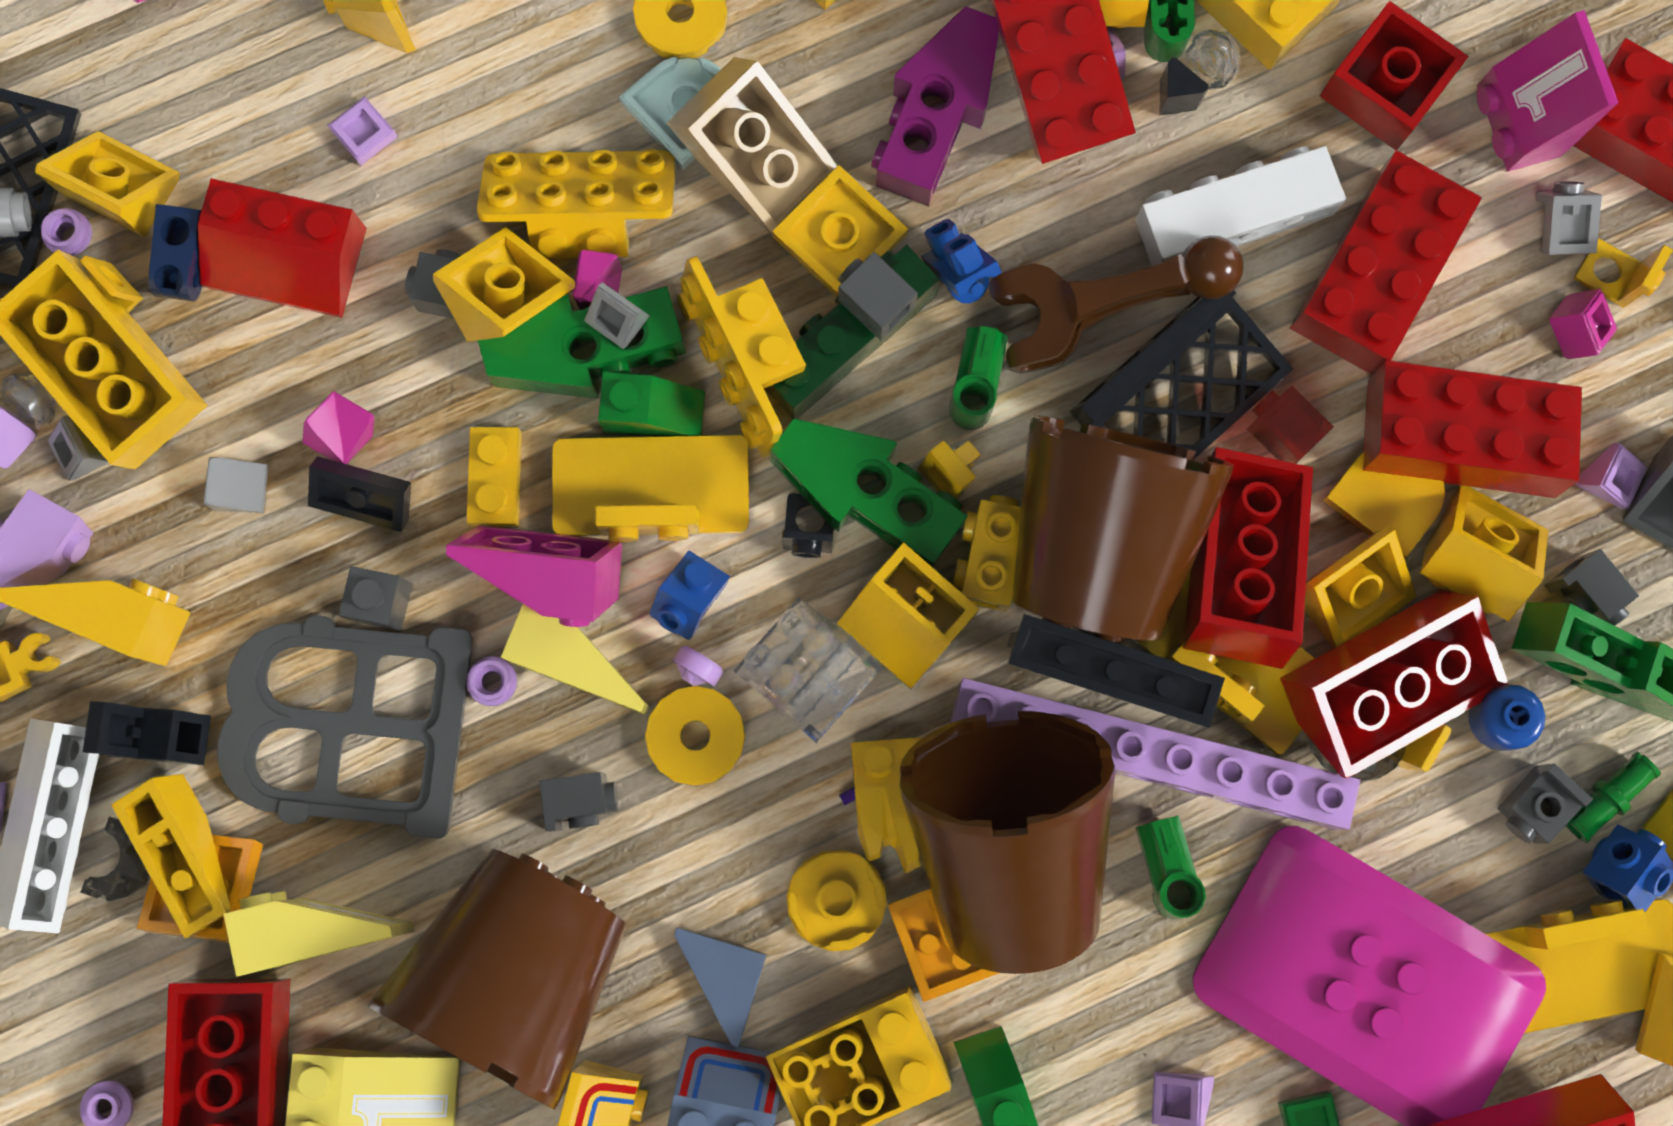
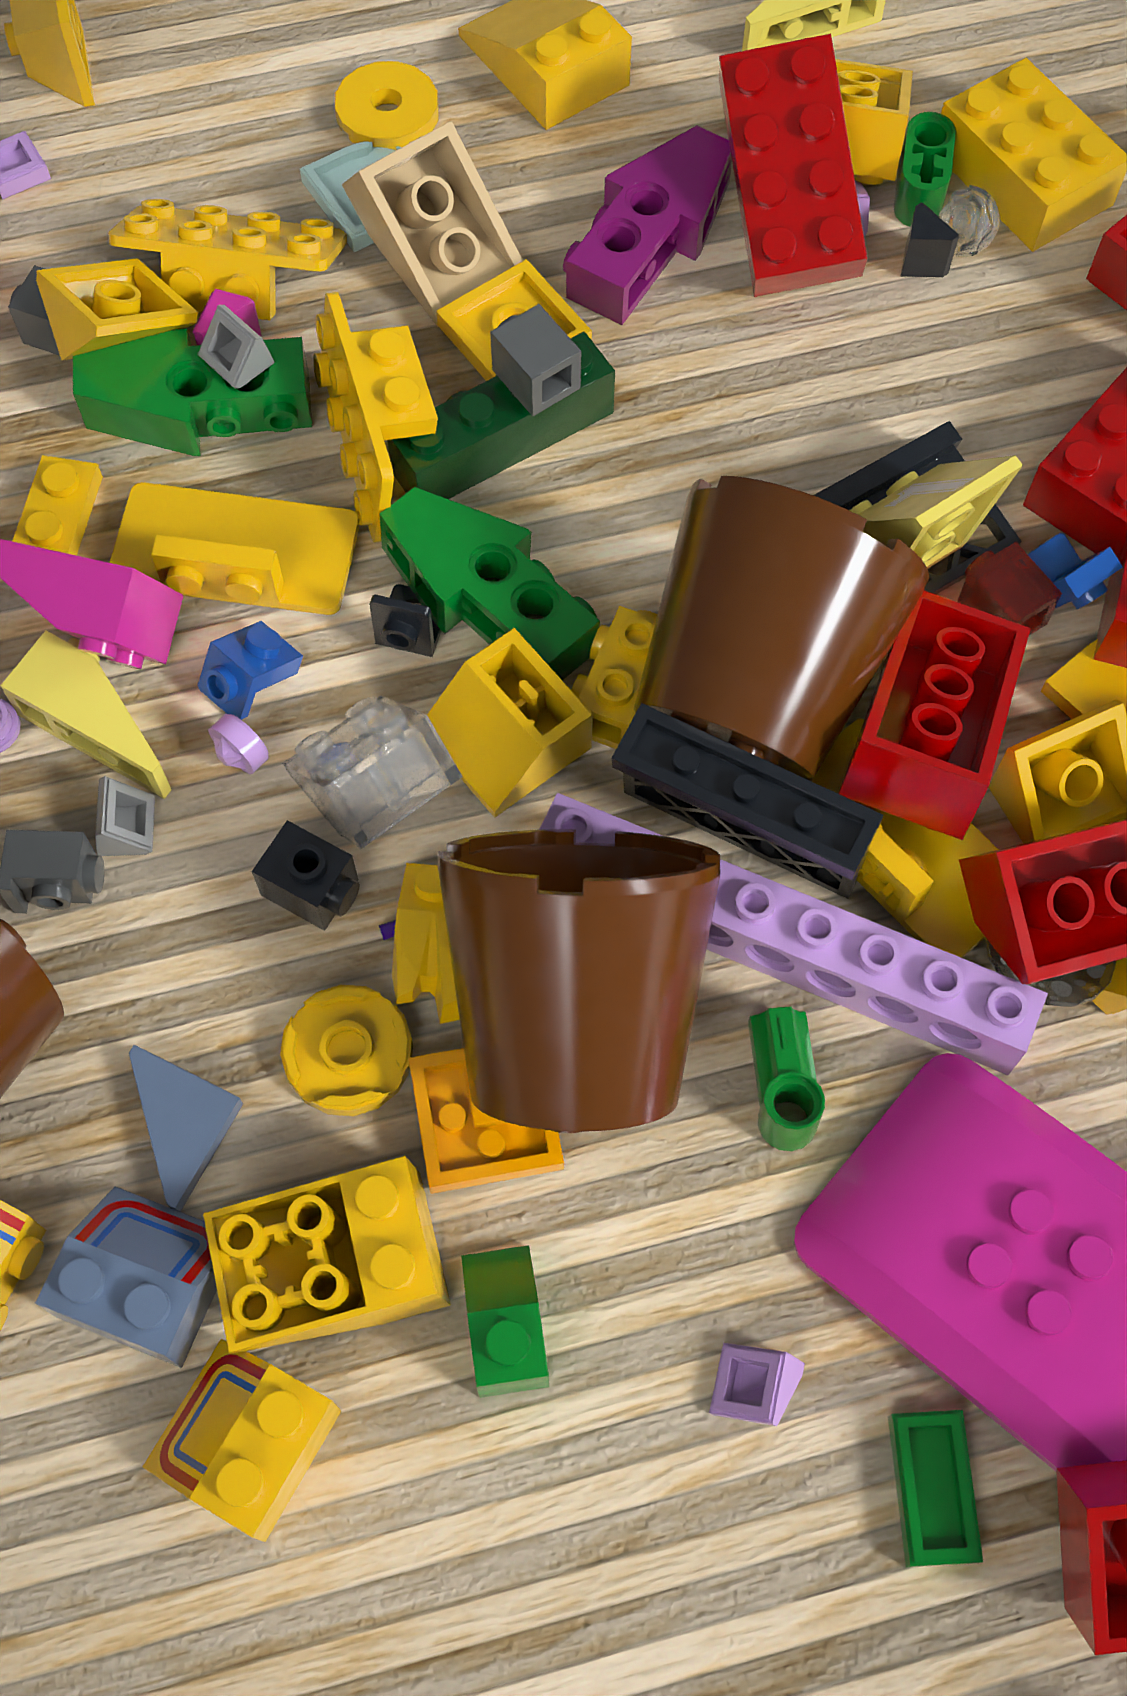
camera: 10 degrees right, 15 degrees down
(621, 743) = (123, 819): none -> light grey slope
(649, 406) = (250, 458): green slope -> none
(666, 729) = (201, 798): yellow tile -> none
(779, 770) = (307, 876): none -> black brick
(950, 469) = (592, 574): yellow tile -> none
(959, 262) = (641, 368): blue hips -> none
(978, 375) = (642, 491): green piece -> none
(1207, 269) = (776, 427): reddish brown piece -> none
(1215, 389) = (940, 507): none -> light yellow slope
(1242, 206) = (978, 363): white brick -> none
(1339, 402) = (1076, 579): none -> blue bracket

